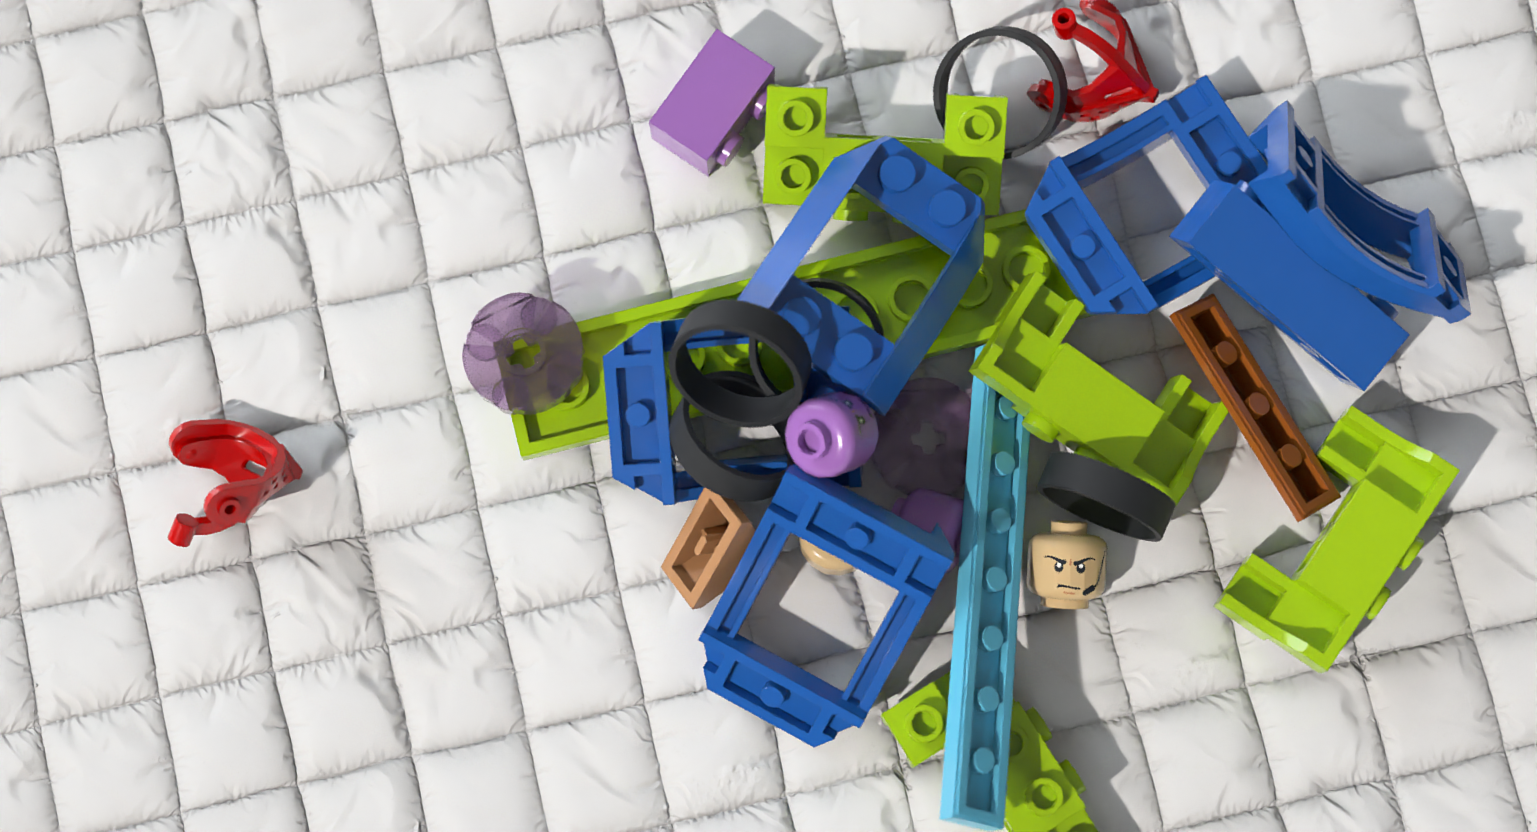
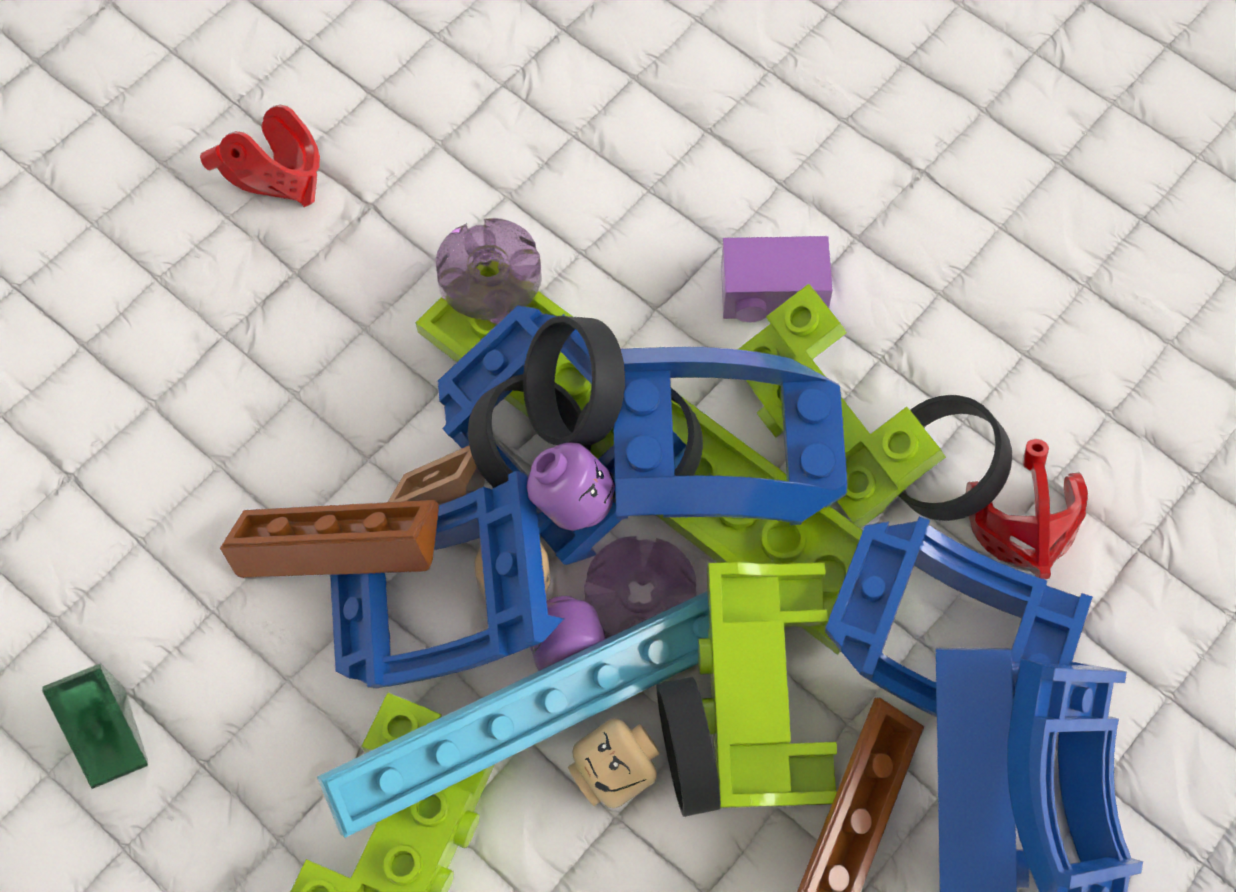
camera: 55 degrees right, 15 degrees down
(698, 671) = (333, 539): none -> dark orange slope

